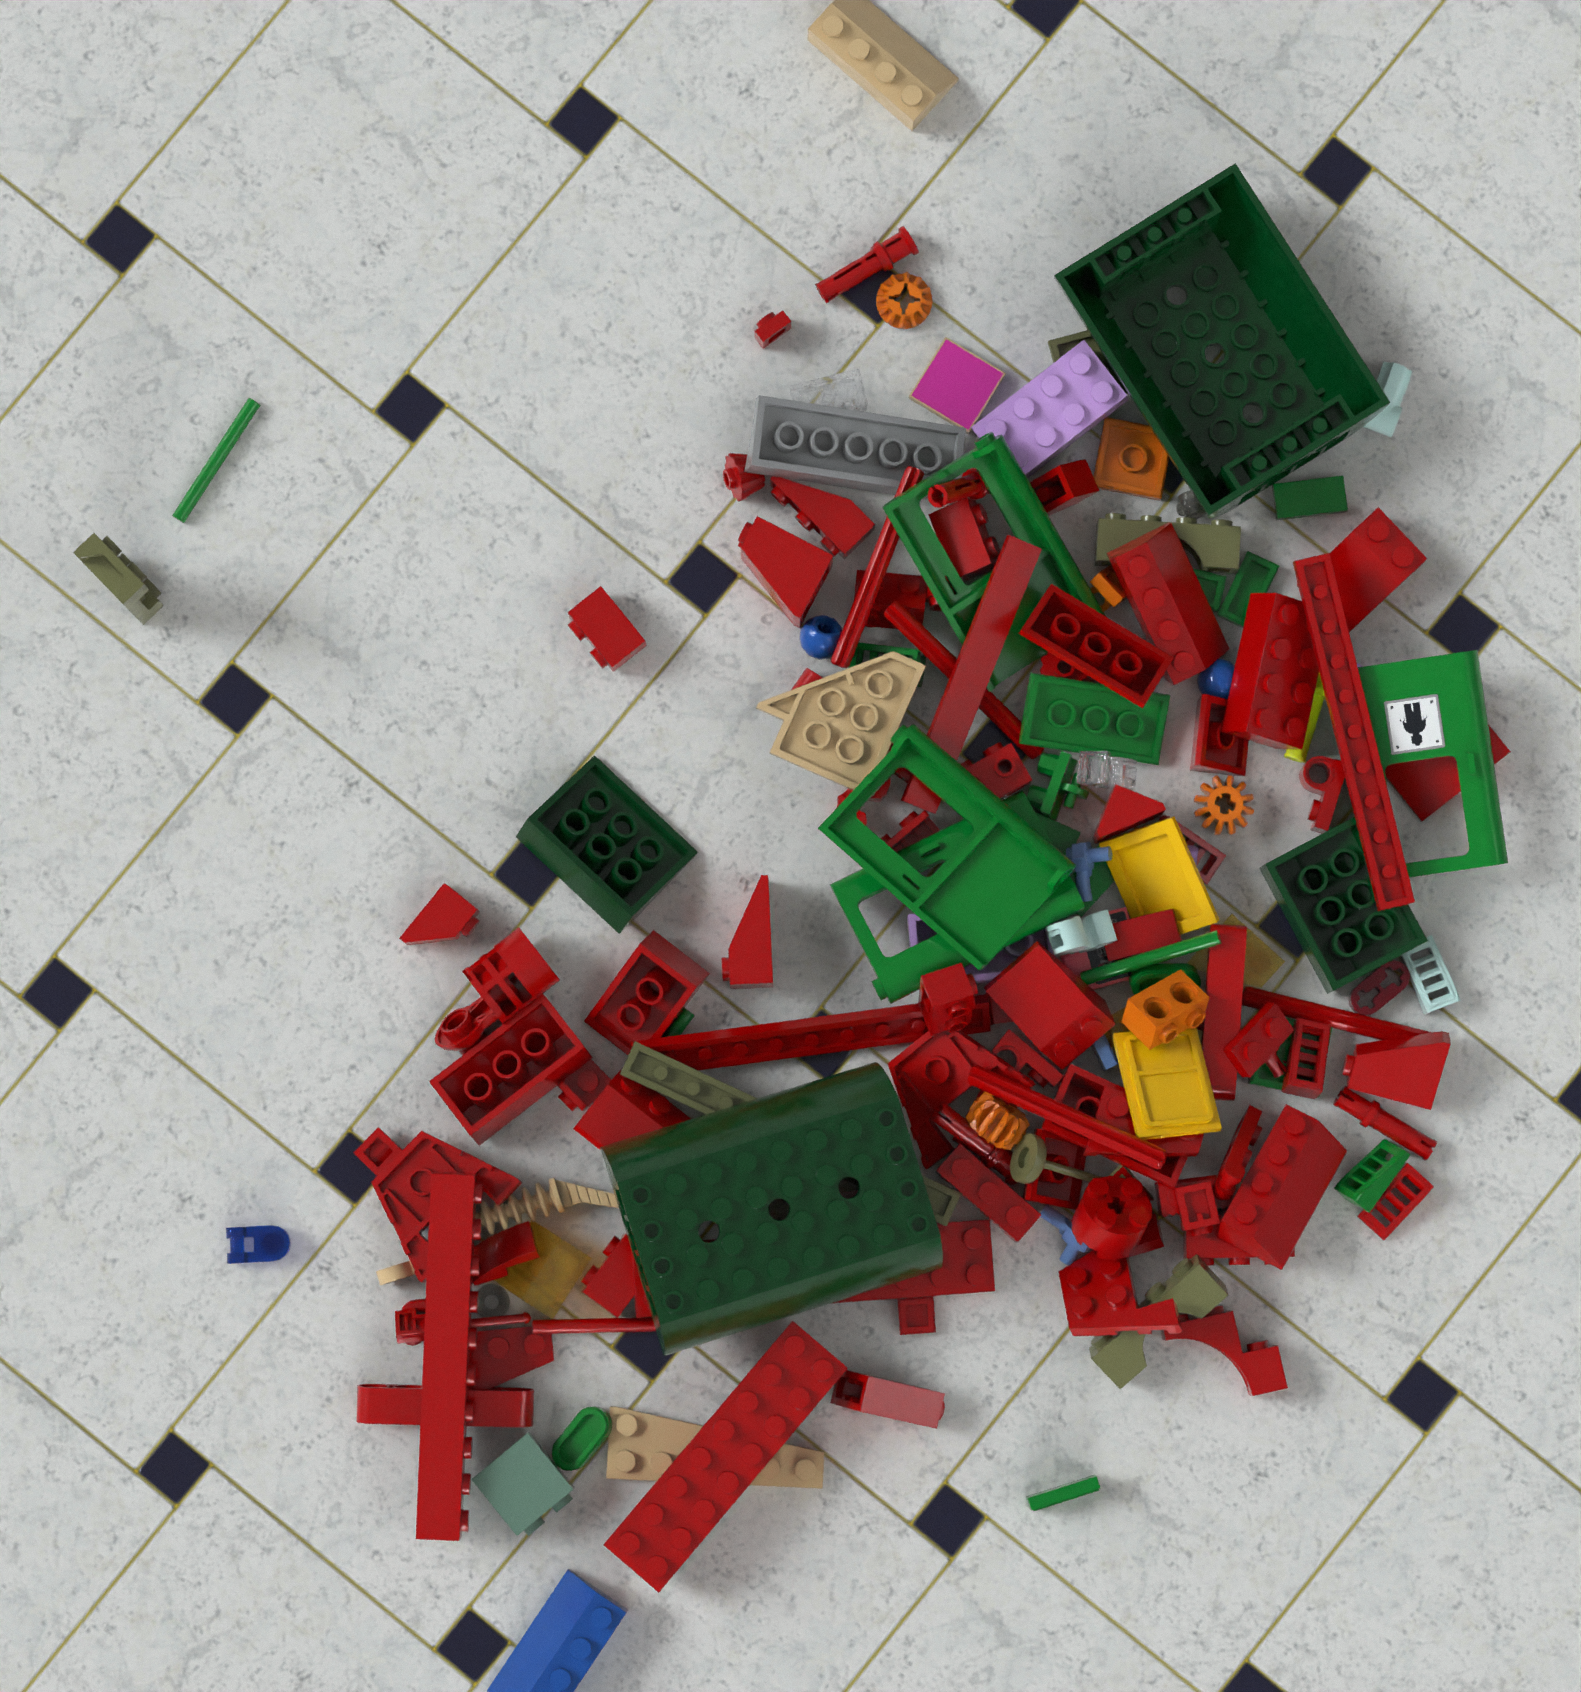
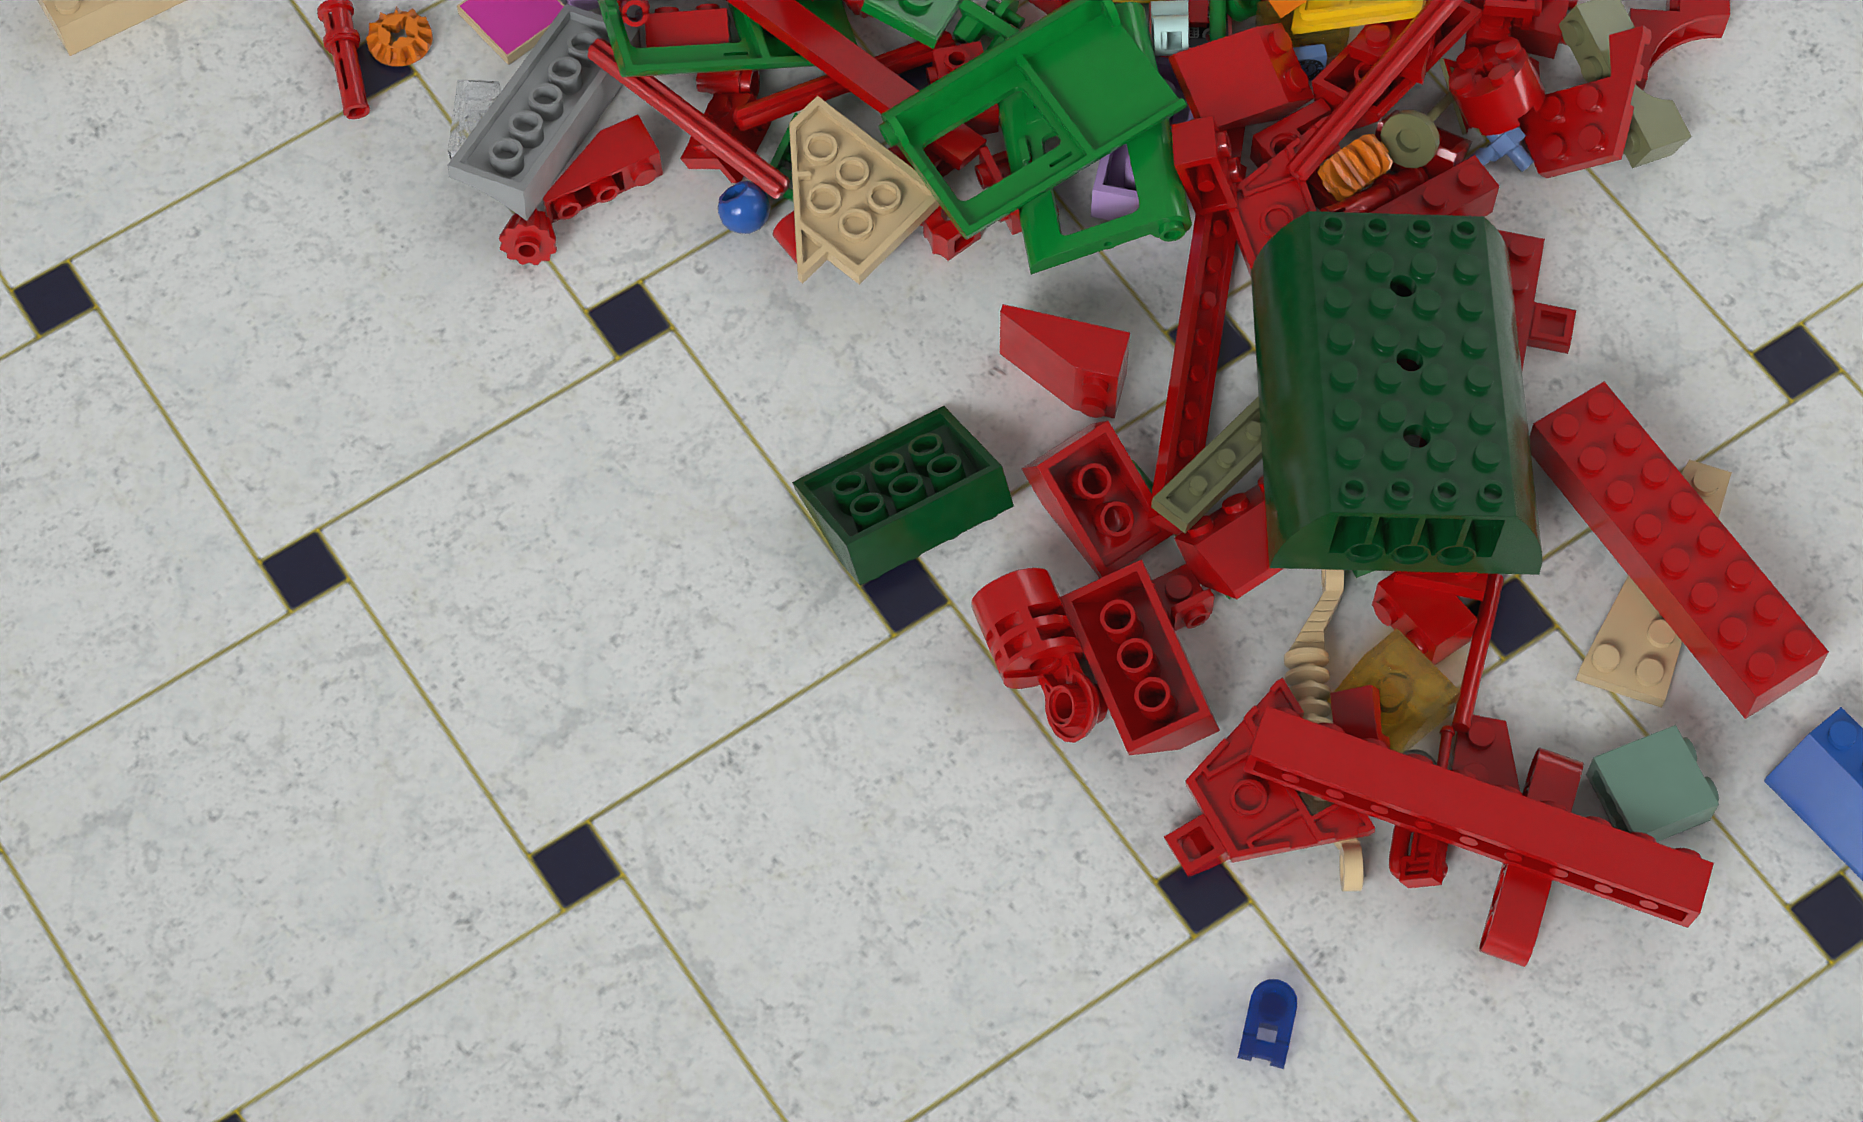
camera: 70 degrees left, 20 degrees down
(120, 576) = (374, 914): olive piece -> none
(216, 460) = (275, 801): green bar -> none
(442, 919) = (930, 692): red slope -> none
(581, 1438) = (1608, 711): green tile -> none
(606, 630) = (651, 419): red brick -> none
(771, 328) = (373, 165): red plate -> none
(785, 566) = (652, 214): red slope -> none
(889, 1399) = (1648, 362): red slope -> none
(1063, 1493) = (1793, 230): green tile -> none

